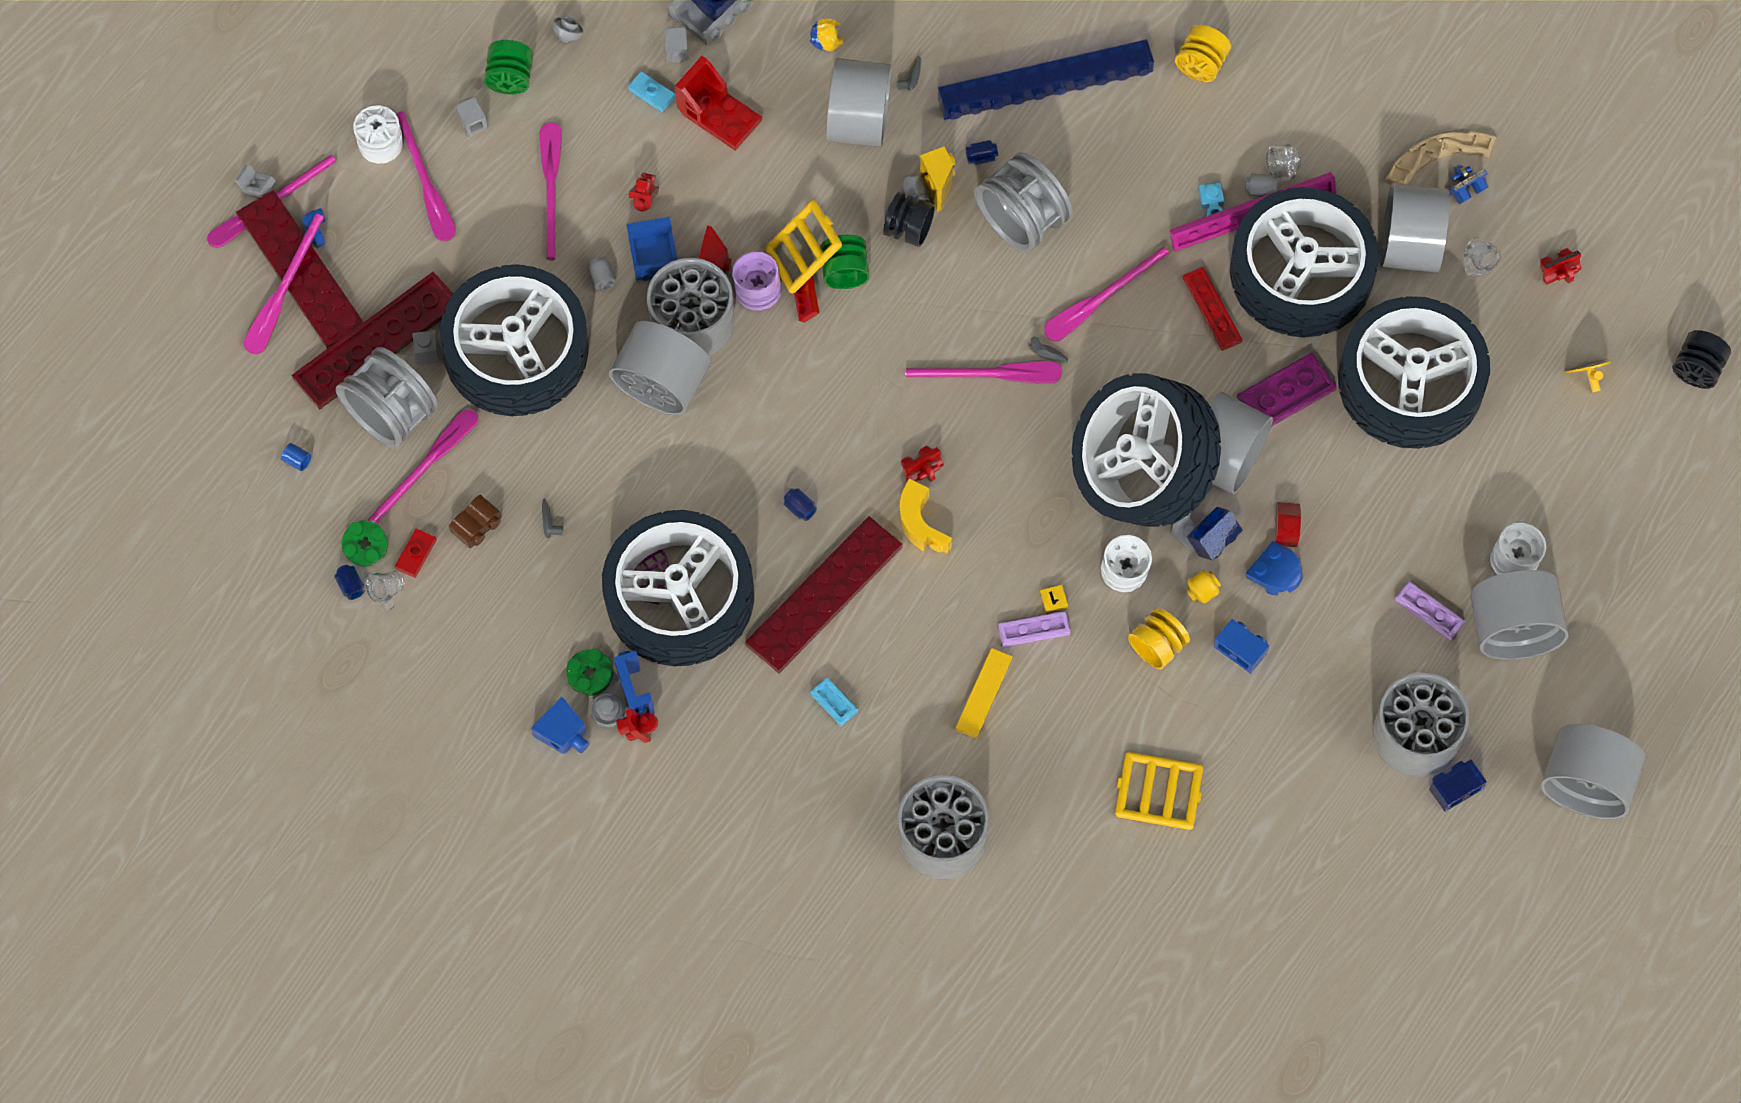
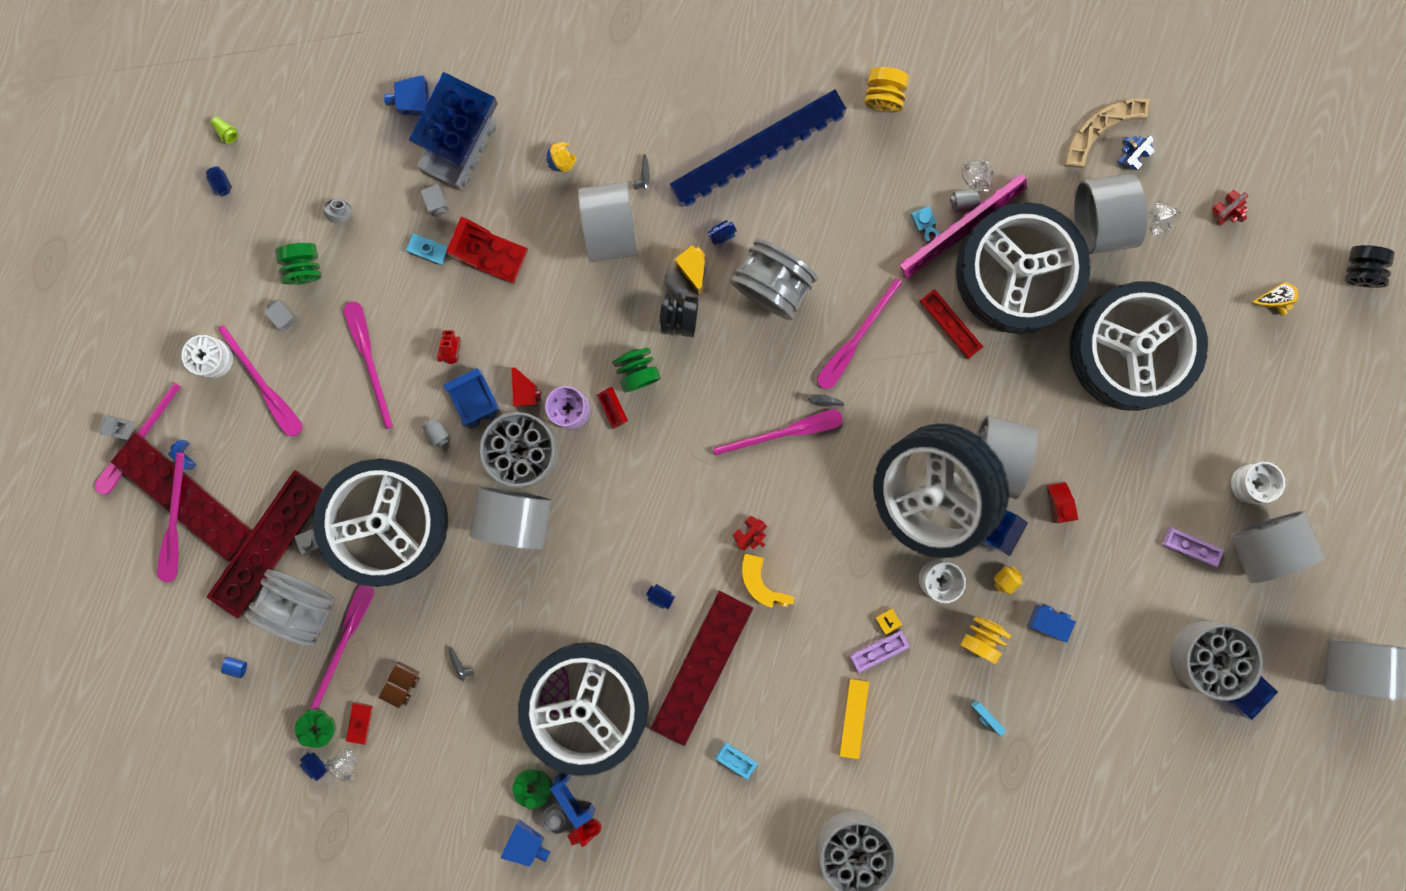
camera: 10 degrees left, 20 degrees up
(822, 257) = (578, 358): yellow bar -> none
(1139, 729) = (987, 719): none -> medium azure plate
(1166, 818) = (1022, 738): yellow bar -> none
(1276, 570) = (1062, 547): blue slope -> none
(1289, 389) = (1031, 383): magenta tile -> none

